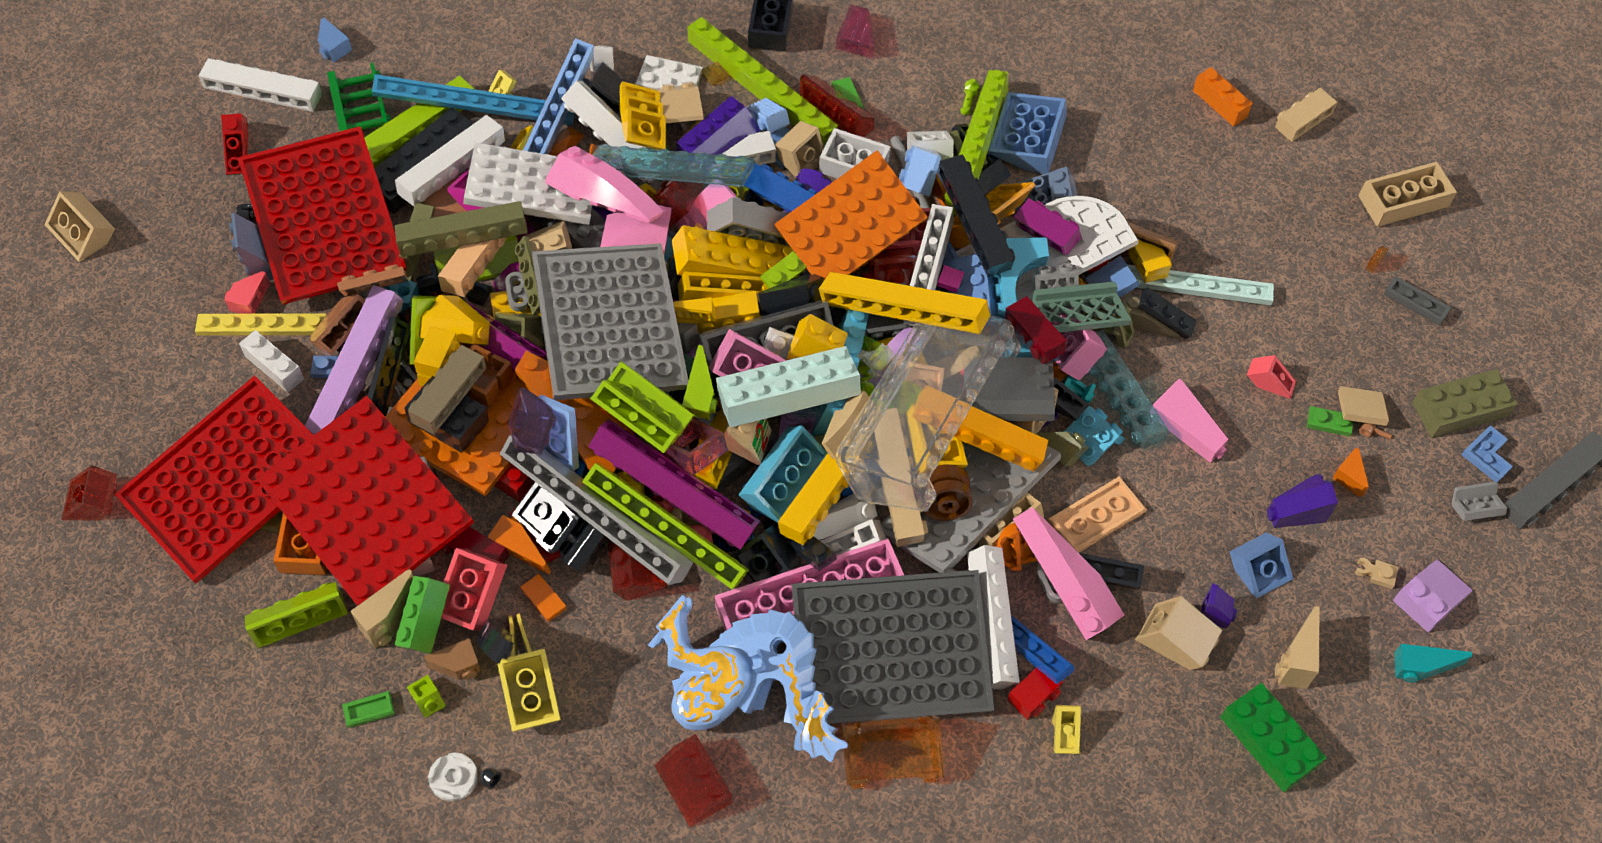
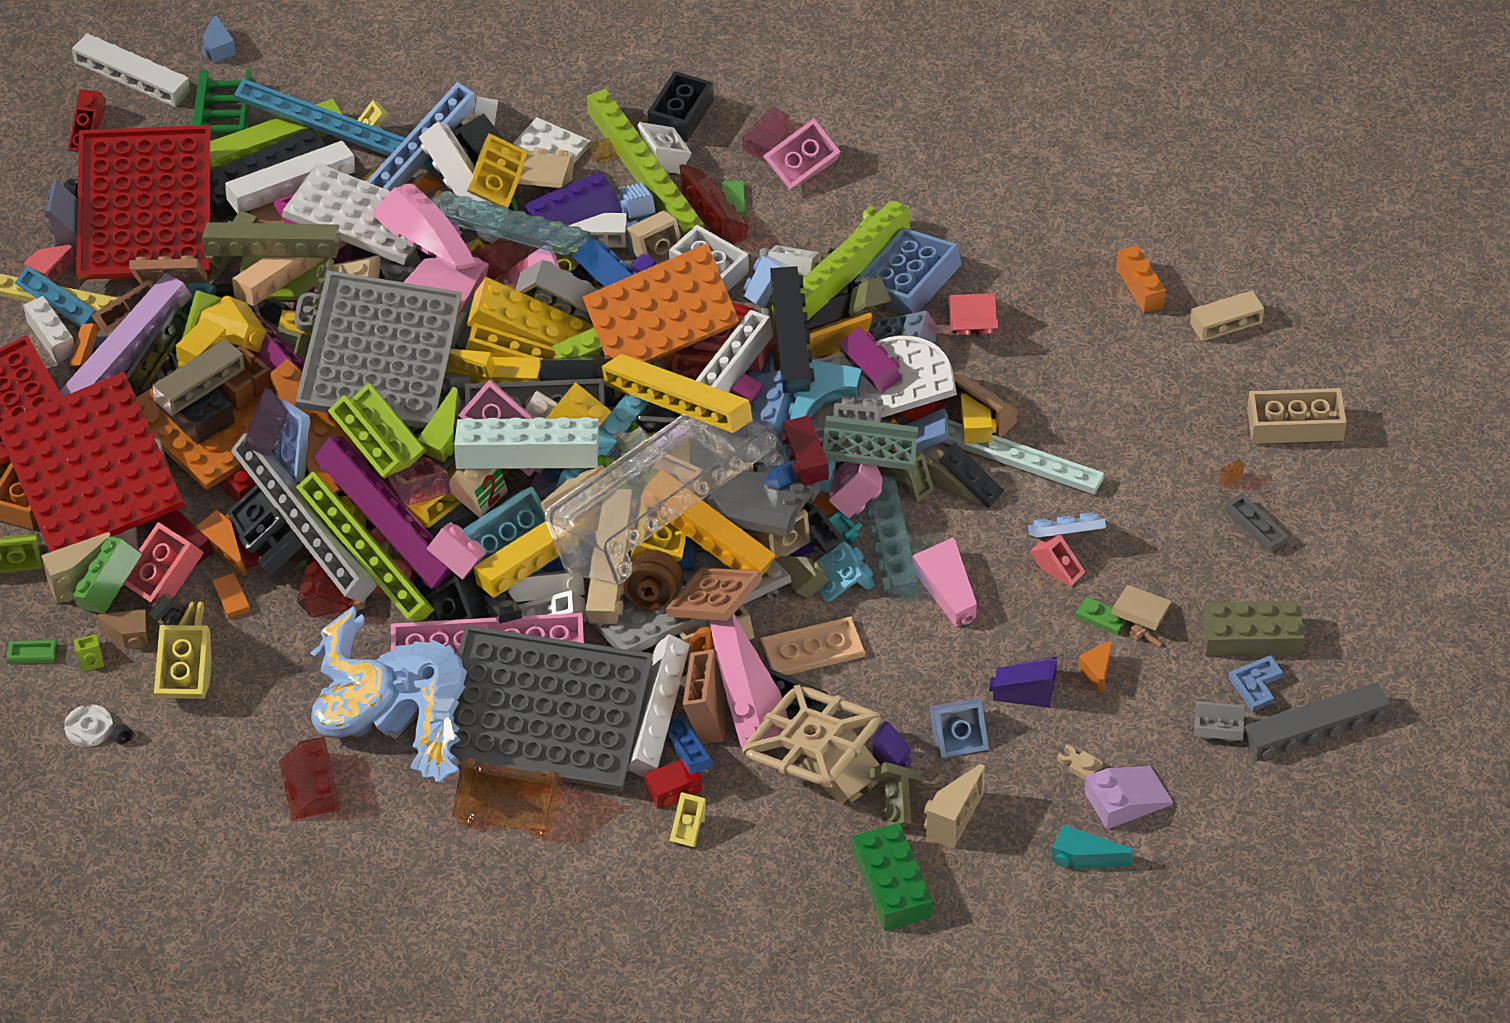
camera: 20 degrees right, 10 degrees down
(267, 327) = (58, 298): none -> dark azure tile
(311, 371) = (84, 345): none -> orange tile
(756, 509) = (456, 550): none -> bright pink brick
(774, 59) = (665, 146): none -> white slope
(896, 42) = (802, 155): none -> bright pink slope
(1008, 493) = (714, 594): none -> nougat plate
(1010, 163) = (868, 296): none -> olive slope
(1023, 361) = (780, 476): none -> blue slope
(1034, 596) = (705, 697): none -> nougat brick
(1101, 159) = (972, 313): none -> coral bracket
(1163, 628) = (816, 745): none -> tan plate
(1243, 652) = (897, 795): none -> olive bracket
(1268, 343) = (1066, 525): none -> light blue plate

